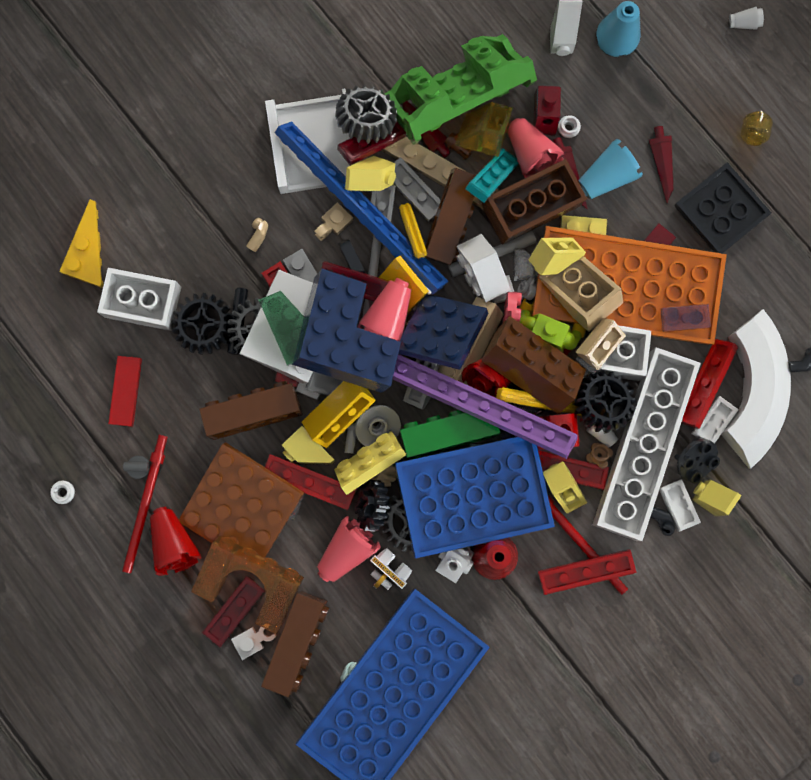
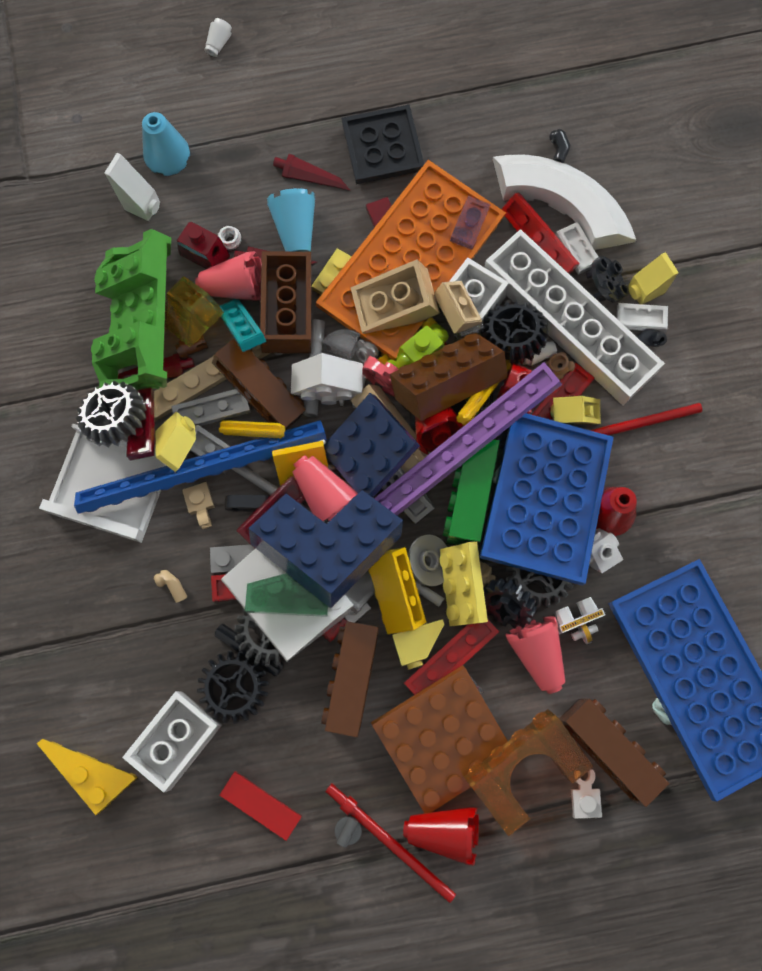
camera: 60 degrees left, 5 degrees down
(55, 492) = (329, 936): white plate -> none
(233, 611) = (546, 802): dark red tile -> none
(555, 255) = (350, 305): light yellow slope -> none
(587, 571) = (667, 431): red tile -> none
(756, 128) = (323, 78): clear yellow head -> none

